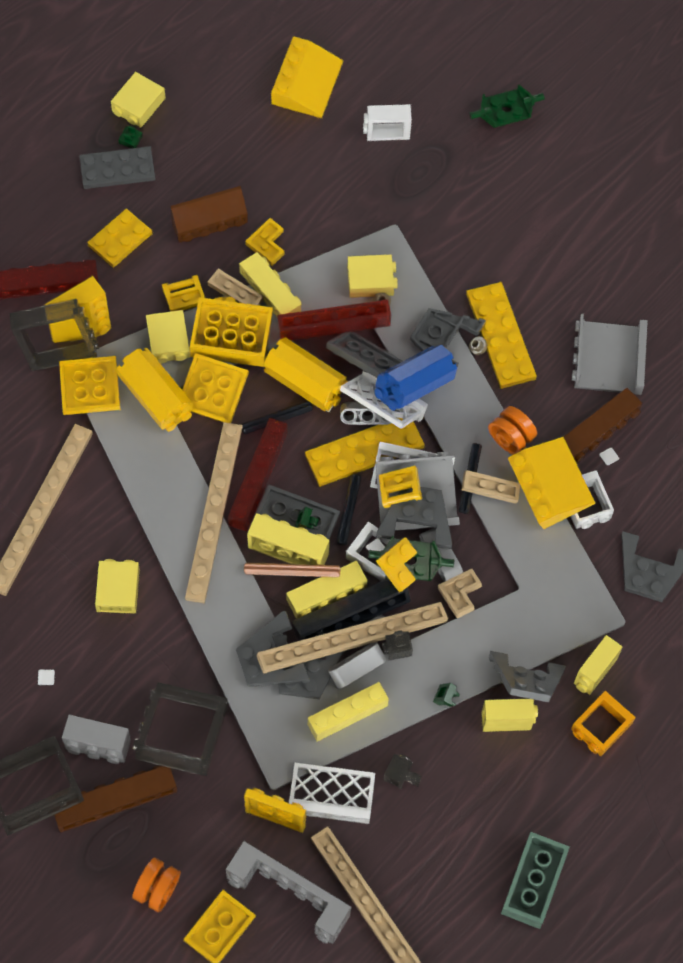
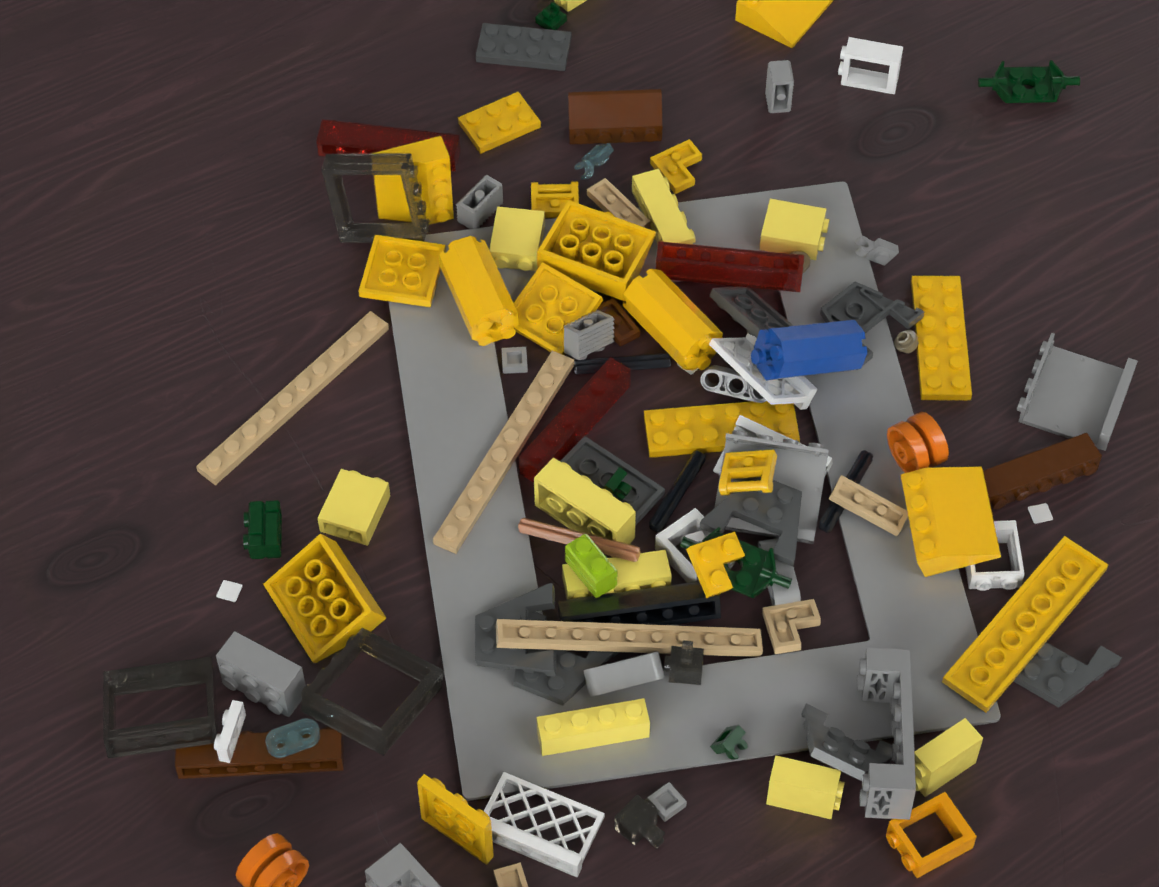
camera: 20 degrees right, 10 degrees down
(57, 623) = (264, 529): none -> dark green brick
(90, 799) = (232, 725): none -> white plate
(119, 666) = (323, 598): none -> yellow slope
(129, 312) = (480, 202): none -> light grey brick
(137, 782) = (292, 737): none -> clear light blue plate
(196, 436) = (514, 360): none -> light grey plate
(203, 250) = (597, 157): none -> clear light blue plate
(246, 402) = (588, 334): none -> light grey brick
(263, 385) = (625, 328): none -> reddish brown plate
(309, 590) = (591, 565): none -> lime brick
(325, 157) = (779, 86): none -> light grey brick
(415, 750) = (667, 801): none -> light grey plate
(437, 278) = (878, 251): none -> light grey plate
(546, 617) = (890, 788): none -> light grey plate
(624, 547) = (1024, 624): none -> yellow plate

